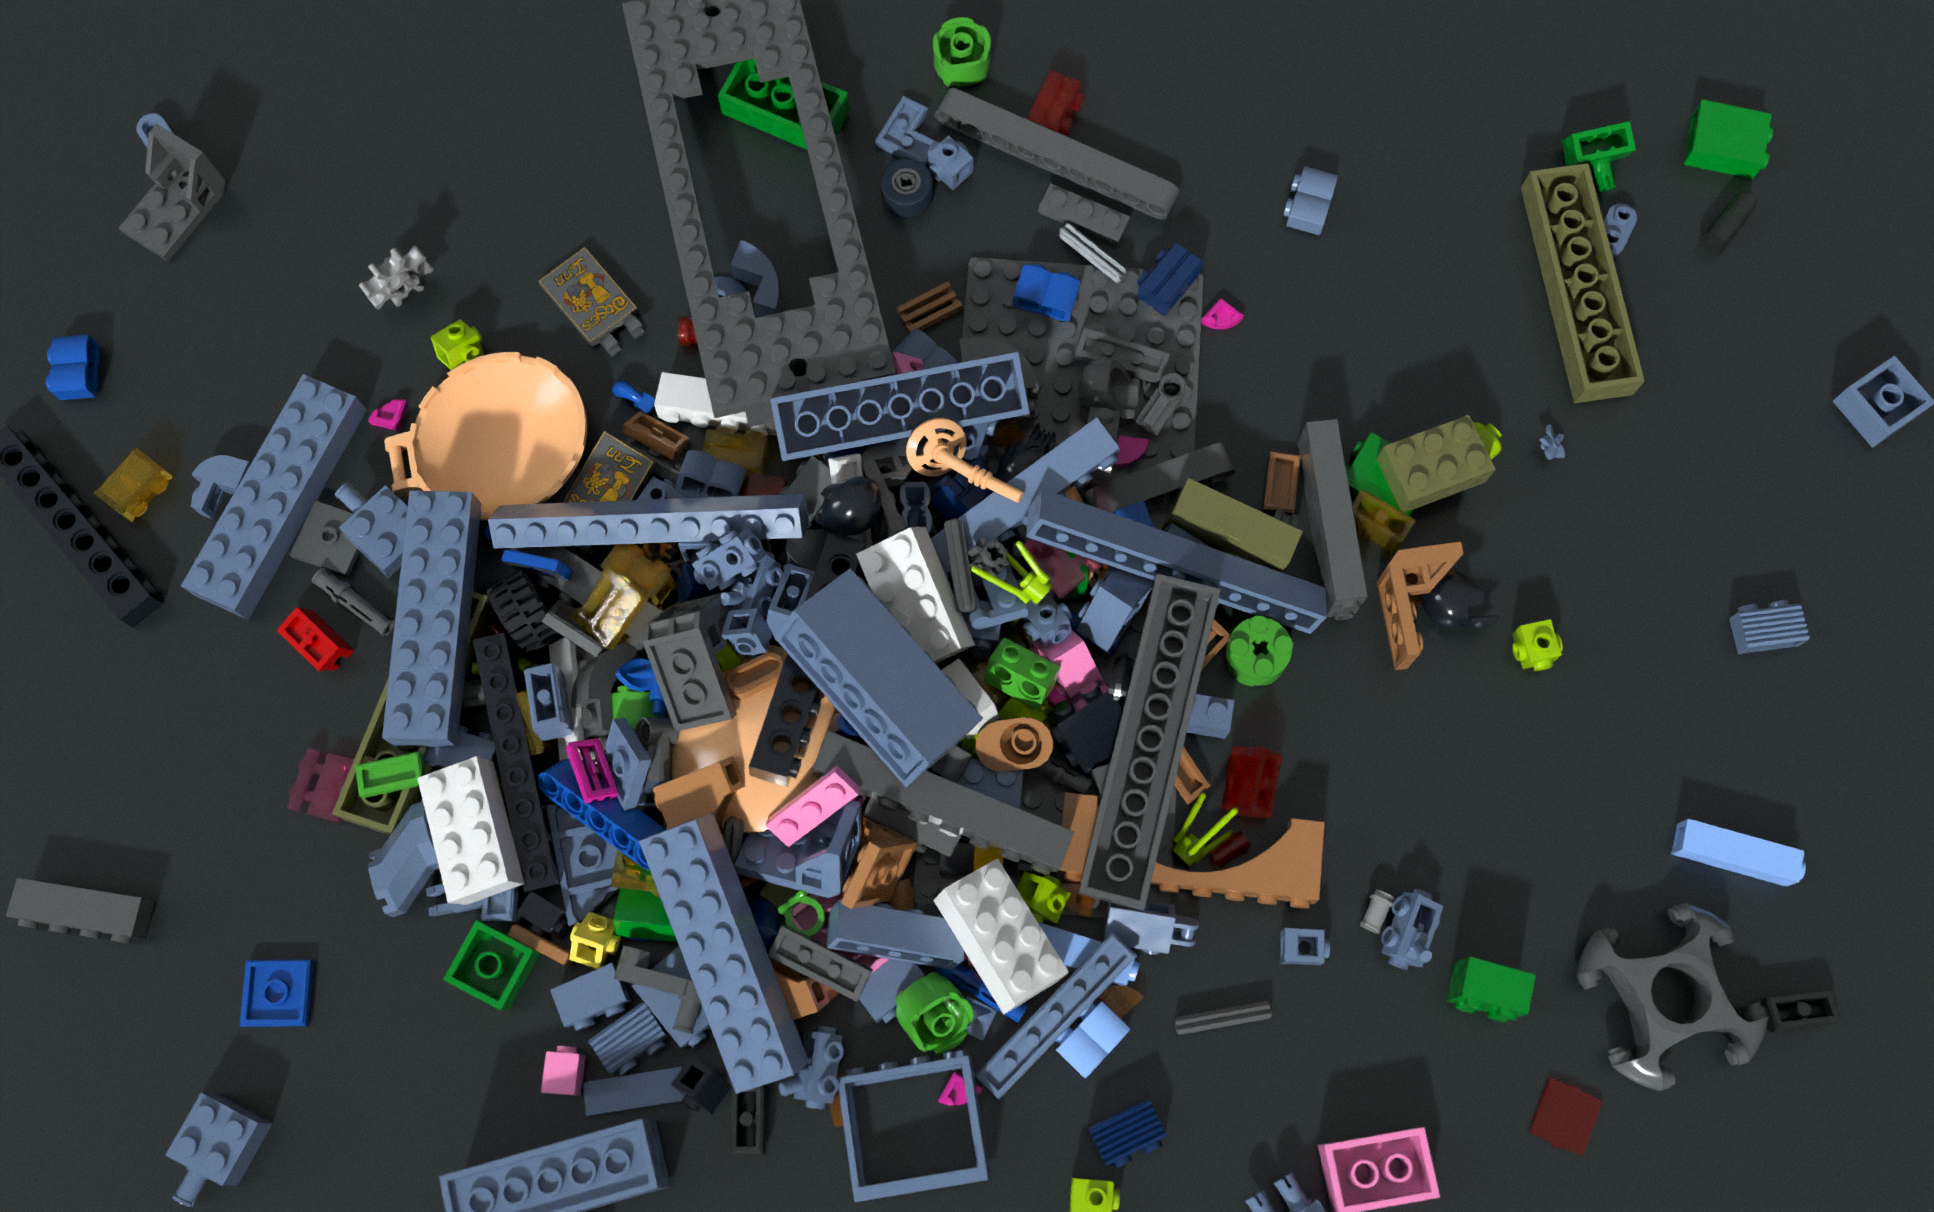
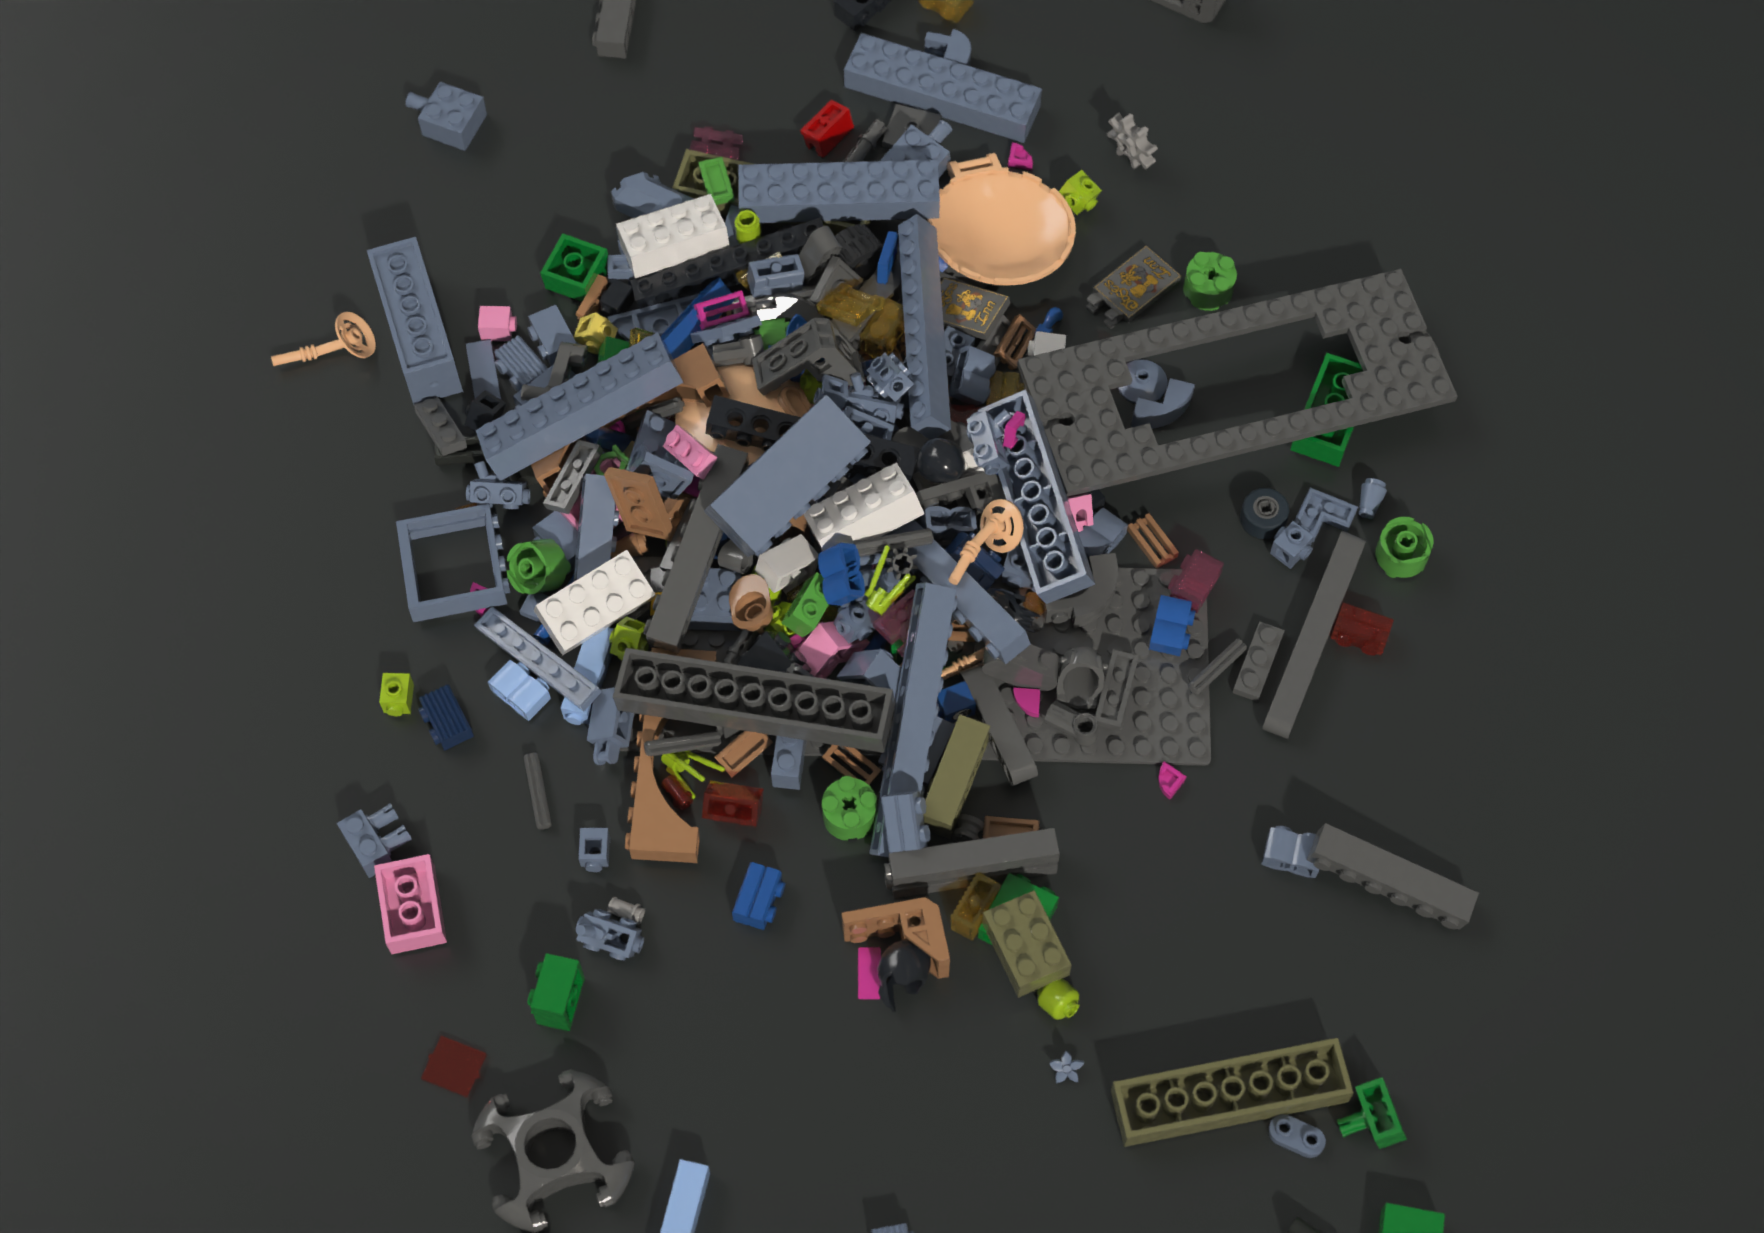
camera: 85 degrees right, 10 degrees down
(277, 993) = (558, 140): blue tile -> none
(467, 728) = (747, 226): none -> lime brick
(530, 639) = (817, 254): none -> dark grey beam
(598, 214) = (1210, 280): none -> bright green brick
(712, 1146) = (440, 426): none -> dark grey plate
(824, 414) = (1011, 429): none -> dark pink tile
(828, 446) = (986, 435): none -> sand blue brick
(893, 80) = (1371, 497): none -> sand blue cone
(991, 261) = (1196, 579): none -> clear pink brick
(1003, 625) = (841, 574): none -> blue brick
(1120, 999) = (551, 713): clear orange tile -> none
(1169, 279) = (1195, 725): dark blue brick -> none
(1184, 840) = (682, 743): none -> dark grey axle
(1301, 579) = (905, 821): none -> sand blue brick
(1346, 107) = (1392, 877): none -> dark grey brick
(1362, 758) = (758, 895): none -> blue brick
(1447, 643) = (867, 972): none -> dark pink sticker
(1537, 645) = (865, 1043): lime brick -> none

